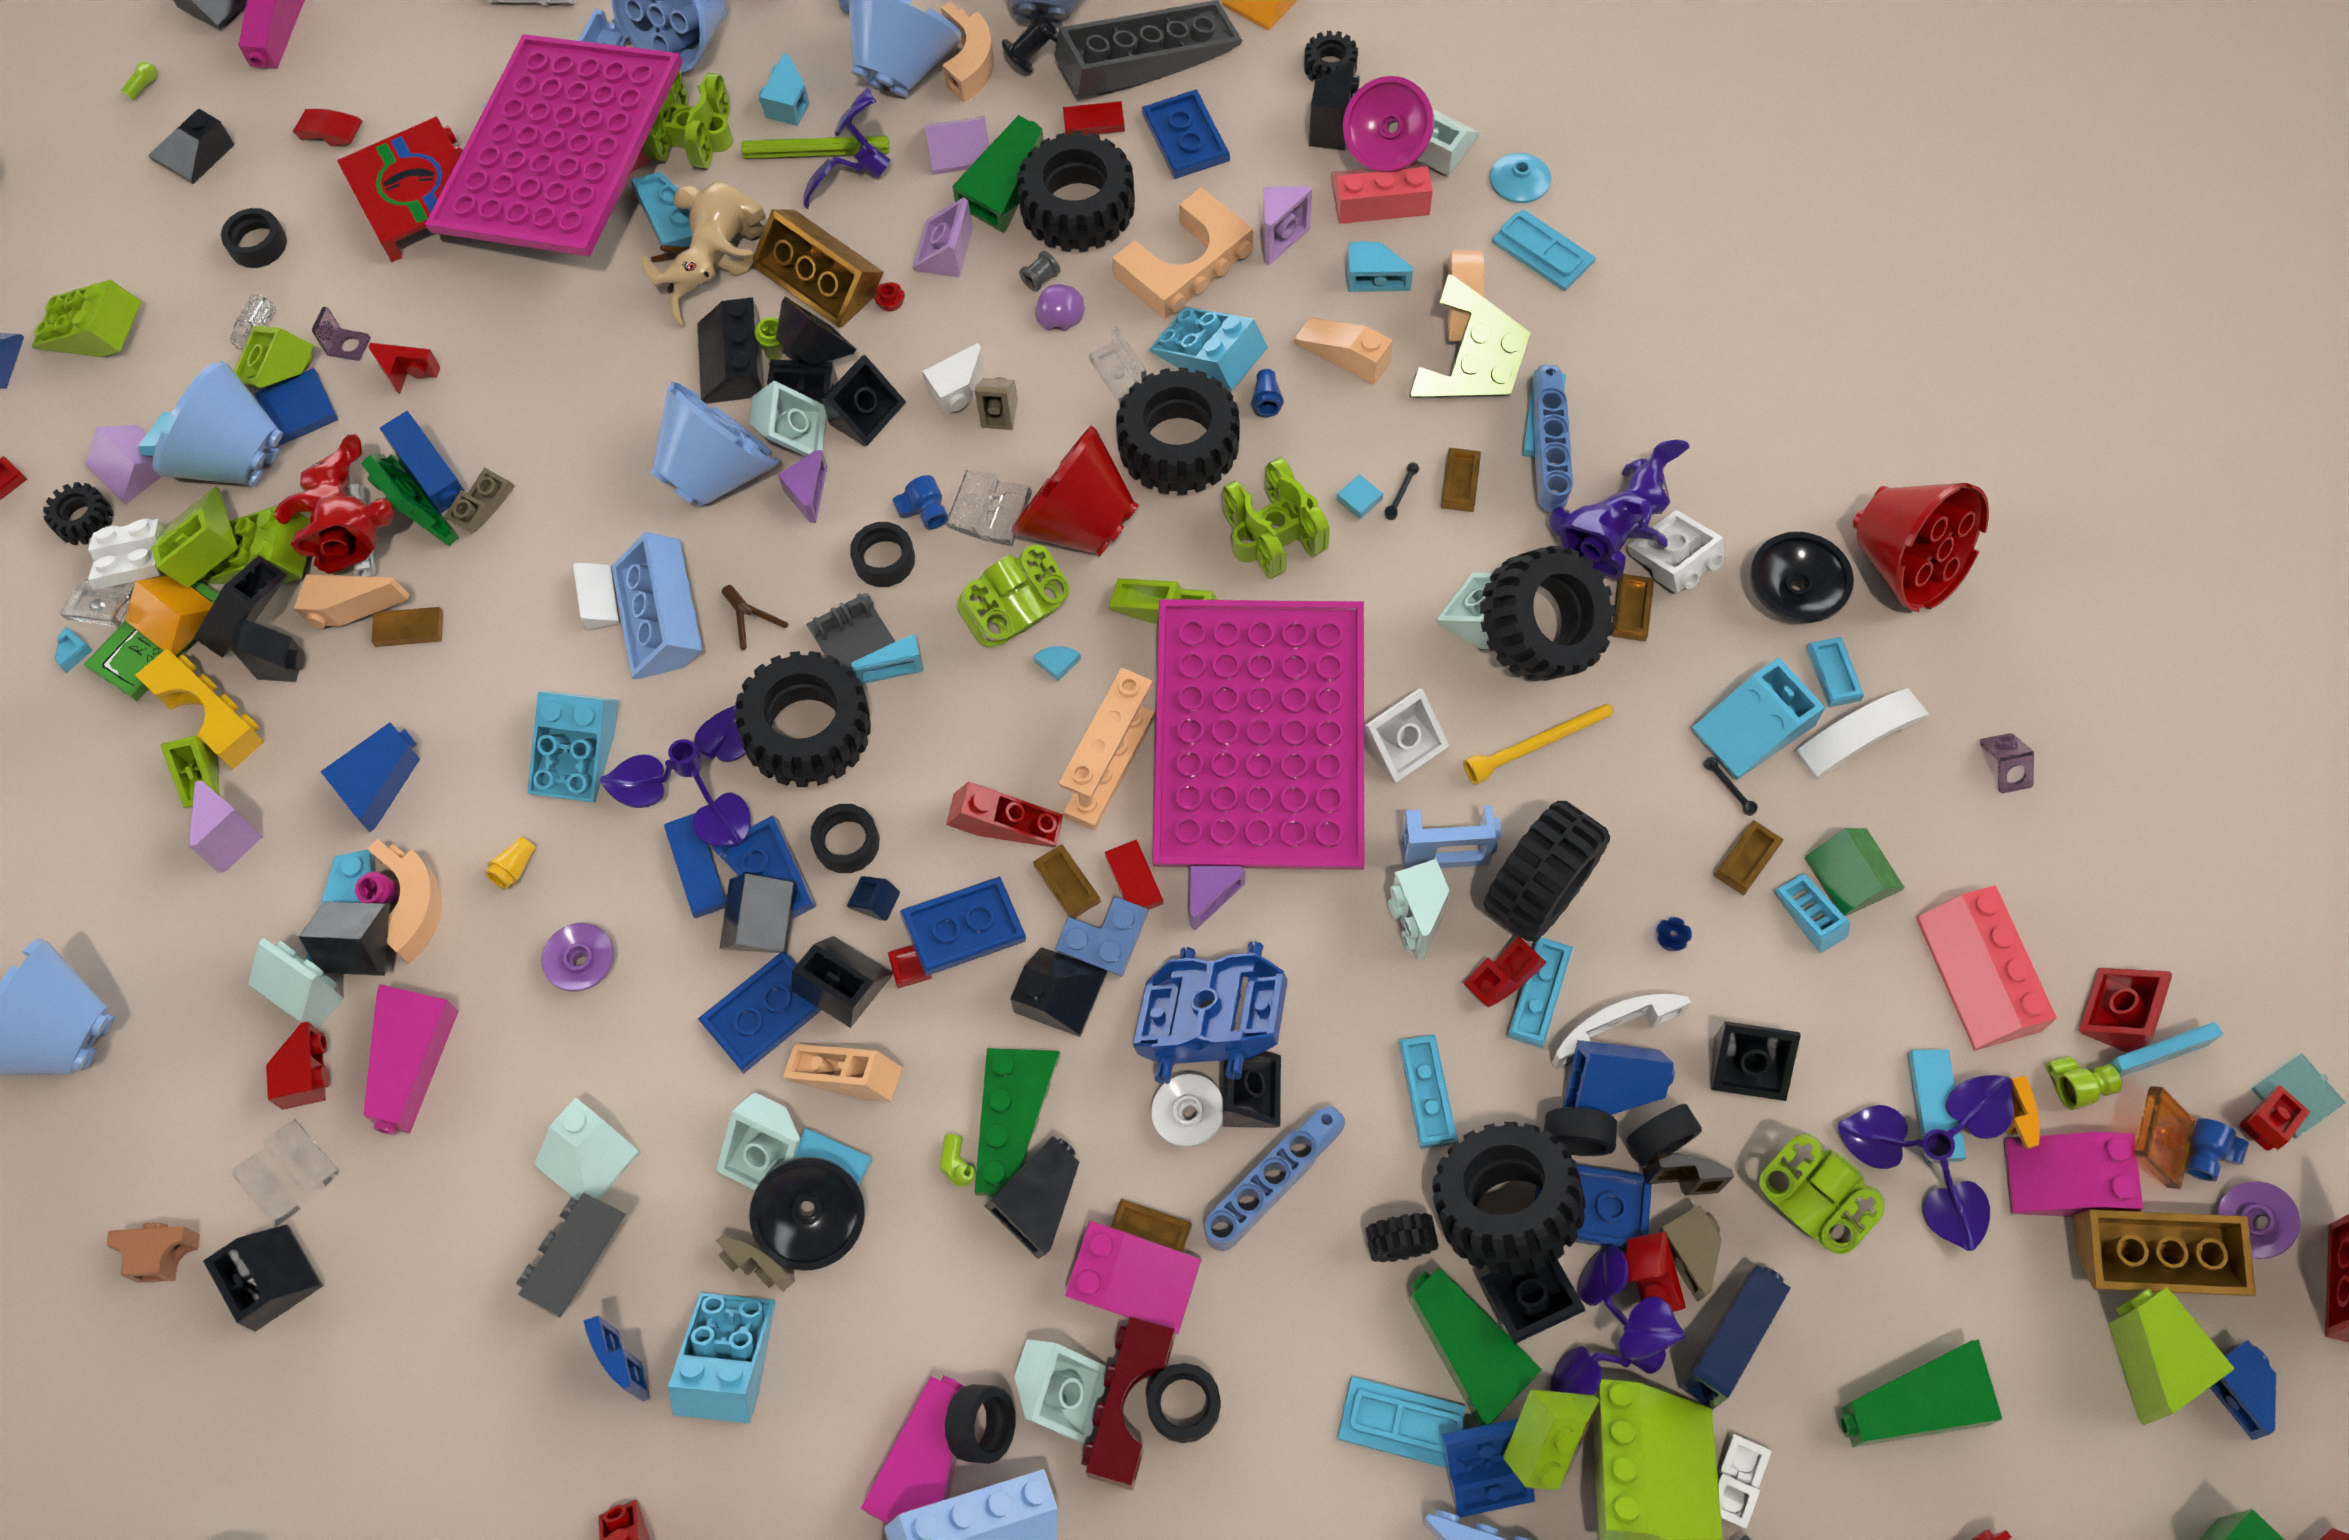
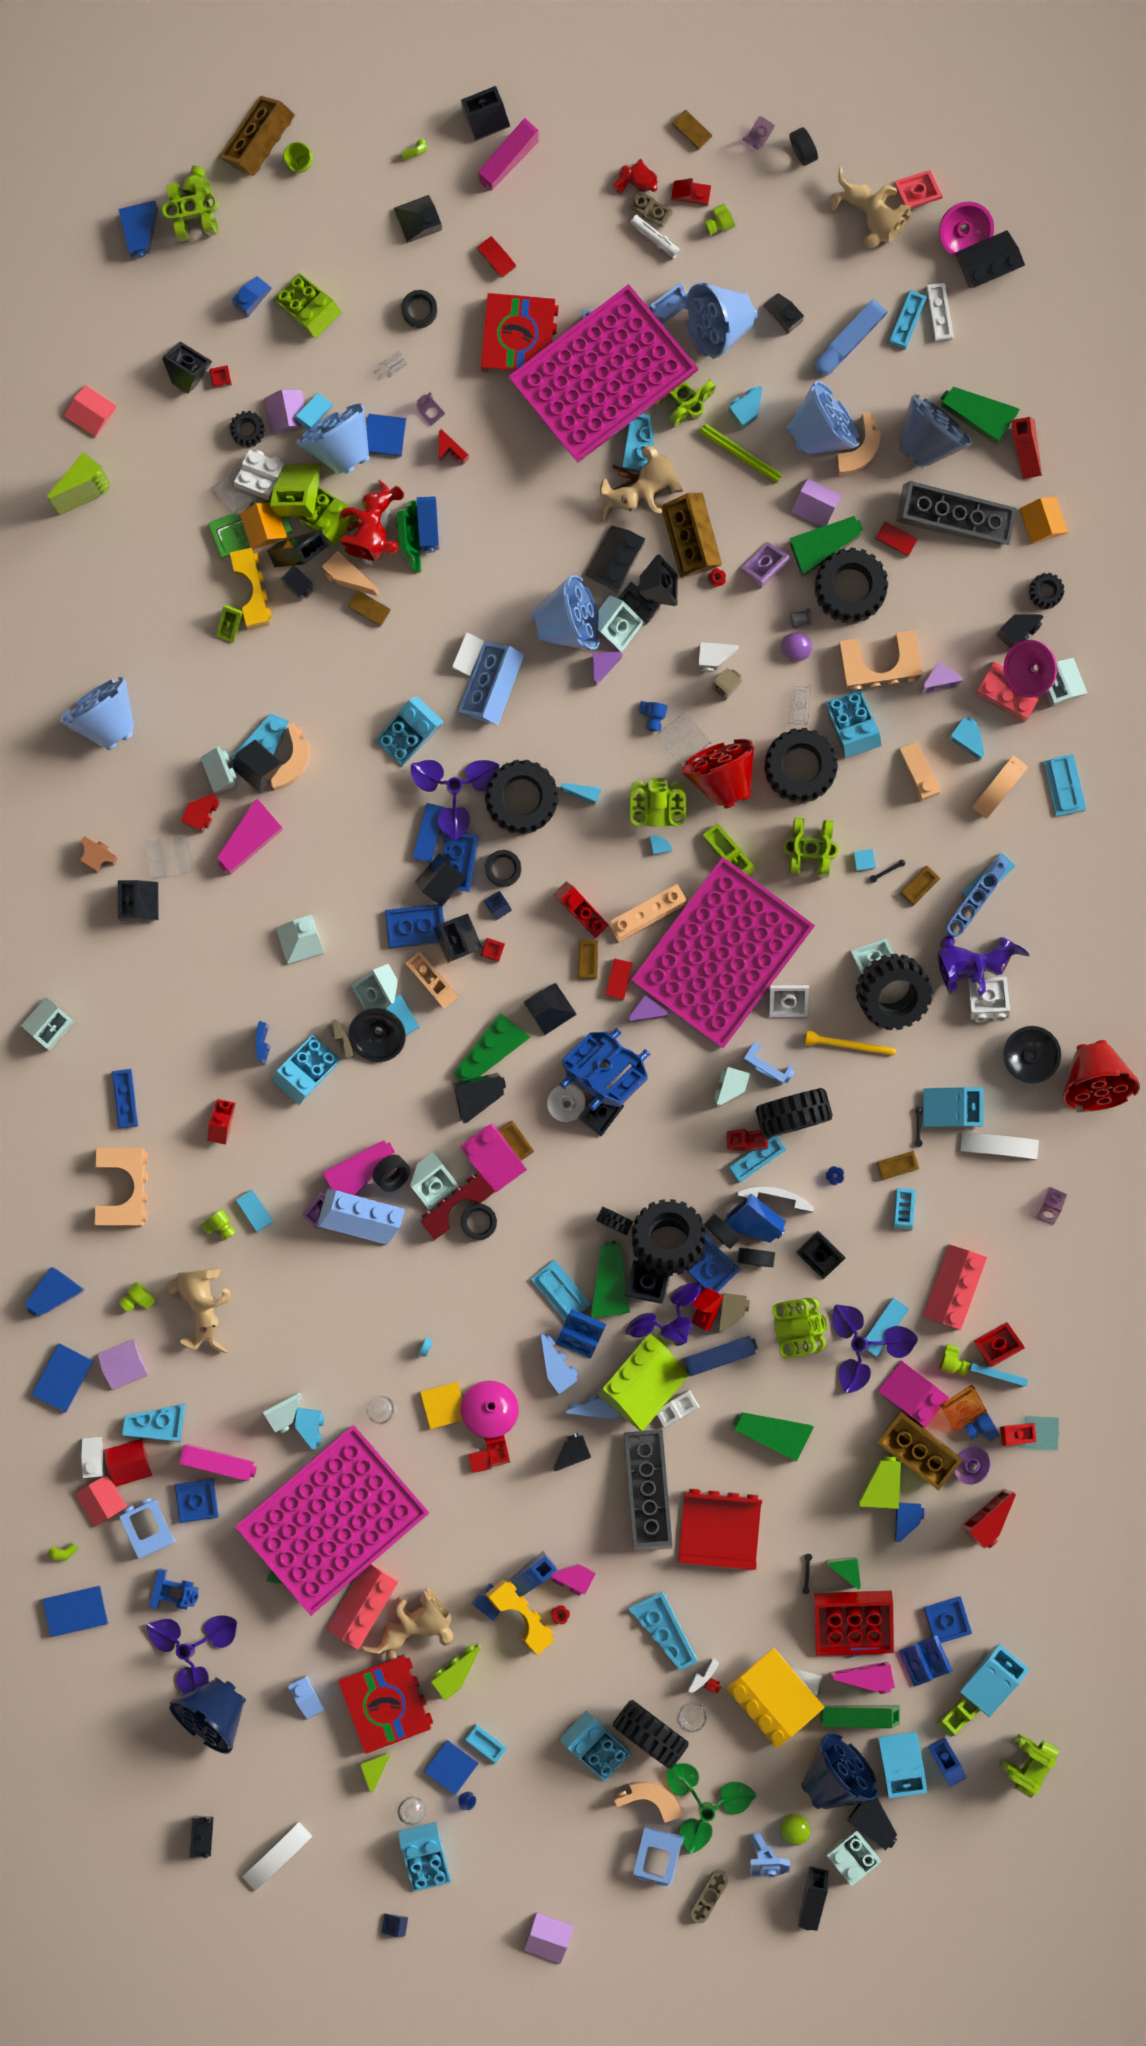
camera: 30 degrees right, 20 degrees up
(70, 650) = (205, 507): medium azure tile -> none
(218, 830) = (228, 666): lavender slope -> none
(272, 357) = (386, 399): lime slope -> none
(373, 773) = (310, 682): blue slope -> none
(377, 888) = (281, 749): dark pink cone -> none
(481, 502) = (442, 559): dark tan slope -> none
(509, 865) = (347, 773): yellow cone -> none
(567, 947) = (343, 836): medium lavender dish -> none
(569, 1254) = (269, 984): dark grey slope -> none
(741, 608) = (531, 713): reddish brown plant -> none
(766, 336) = (639, 561): lime cone -> none
(850, 630) = (573, 762): dark grey hinge -> none
(862, 402) = (661, 637): black slope -> none
(868, 156) = (761, 476): dark purple plant -> none
(874, 534) = (615, 744): black tyre -> none
(952, 1164) = (451, 1054): lime arm -> none
(962, 926) = (527, 948): blue tile -> none
(1030, 41) = (888, 470): black hose -> none
(1109, 946) = (583, 1003): medium blue plate -> none
(1185, 134) = (937, 582): blue tile -> none
(1267, 395) = (861, 772): blue cone -> none
(1312, 1134) = (611, 1150): medium blue piece -> none
(1427, 1091) = (674, 1166): medium azure tile -> none
(1488, 351) = (983, 829): wing -> none
(1520, 178) = (1083, 741): medium azure dish -> none
(1549, 1437) = (611, 1340): lime slope -> none
(1633, 607) = (947, 1010): pearl gold tile -> none
(1695, 1173) = (756, 1282): dark brown slope -> none
(1835, 672) = (1012, 1108): medium azure tile -> none
(1853, 870) = (939, 1205): green slope -> none
(2025, 1114) = (911, 1362): light orange slope -> none

